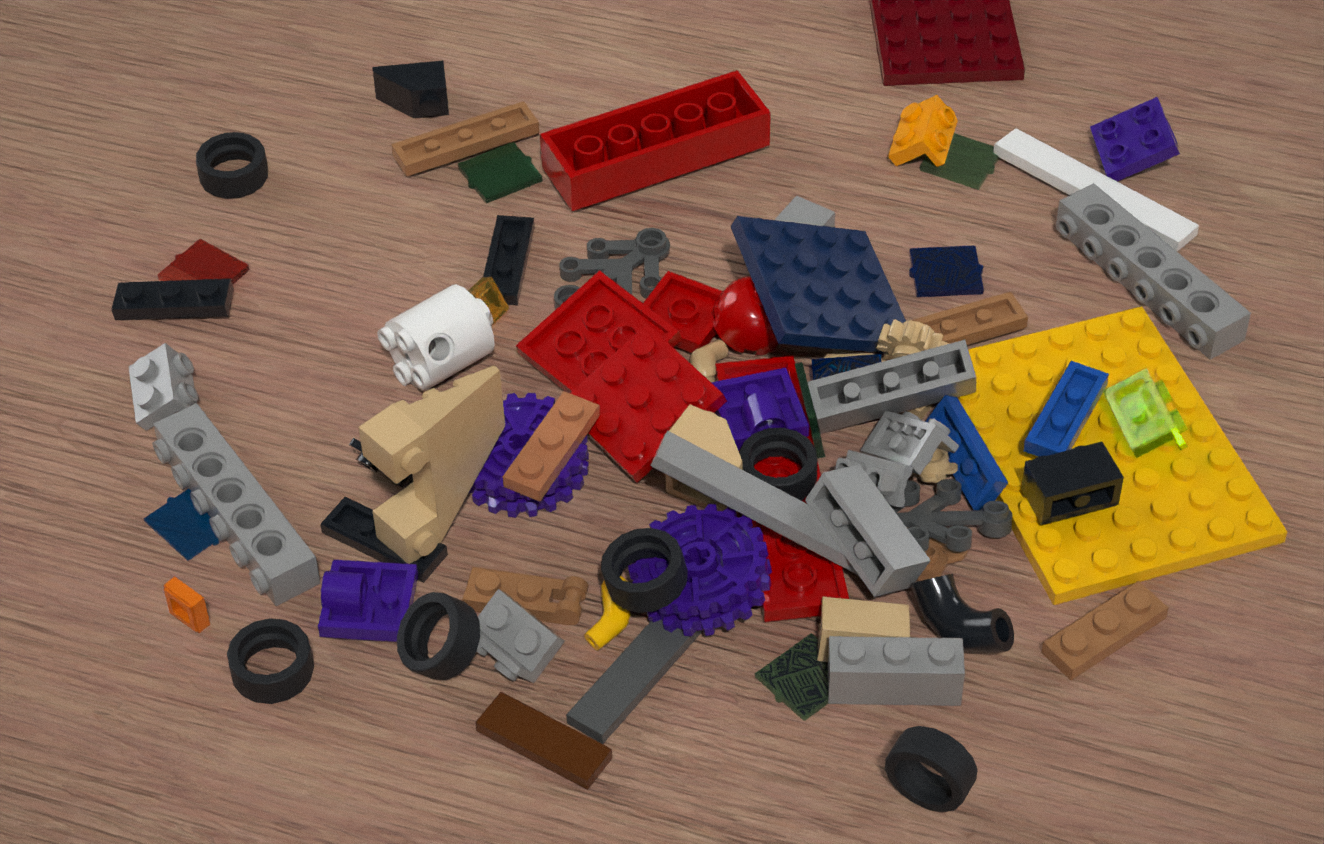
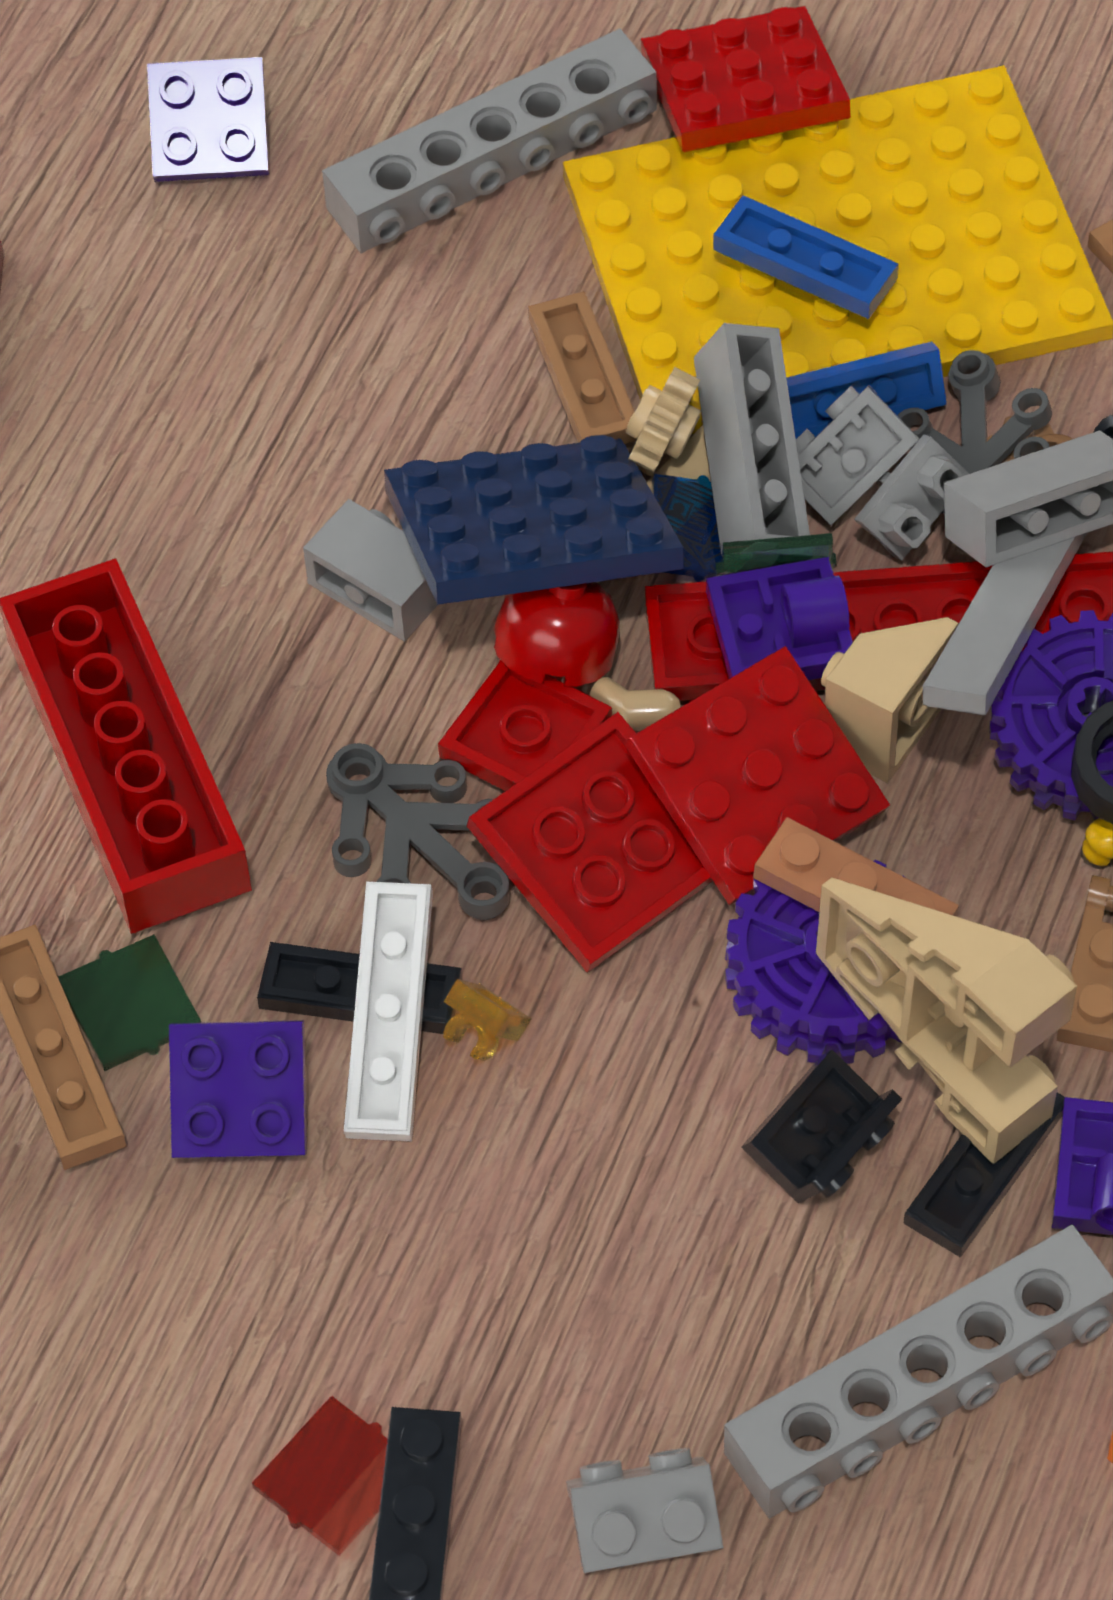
camera: 85 degrees left, 10 degrees up
(183, 526) = (945, 1466): clear blue piece -> none
(231, 147) = (59, 1383): black tyre -> none
(429, 204) = (237, 1089): none -> dark purple plate
(438, 337) = (591, 1059): white cylinder -> none
(485, 260) = (388, 1011): none -> white tile
(787, 444) = (899, 567): black tyre -> none
(924, 130) = (139, 386): light orange bracket -> none
(946, 271) = (446, 394): clear blue piece -> none
(966, 162) = (191, 352): clear green piece -> none
(1071, 176) = (282, 195): white tile -> none
(1072, 483) = (946, 263): black brick -> none
(1143, 413) = (818, 167): clear neon green bracket -> none
(1234, 389) = (745, 78): none -> red plate

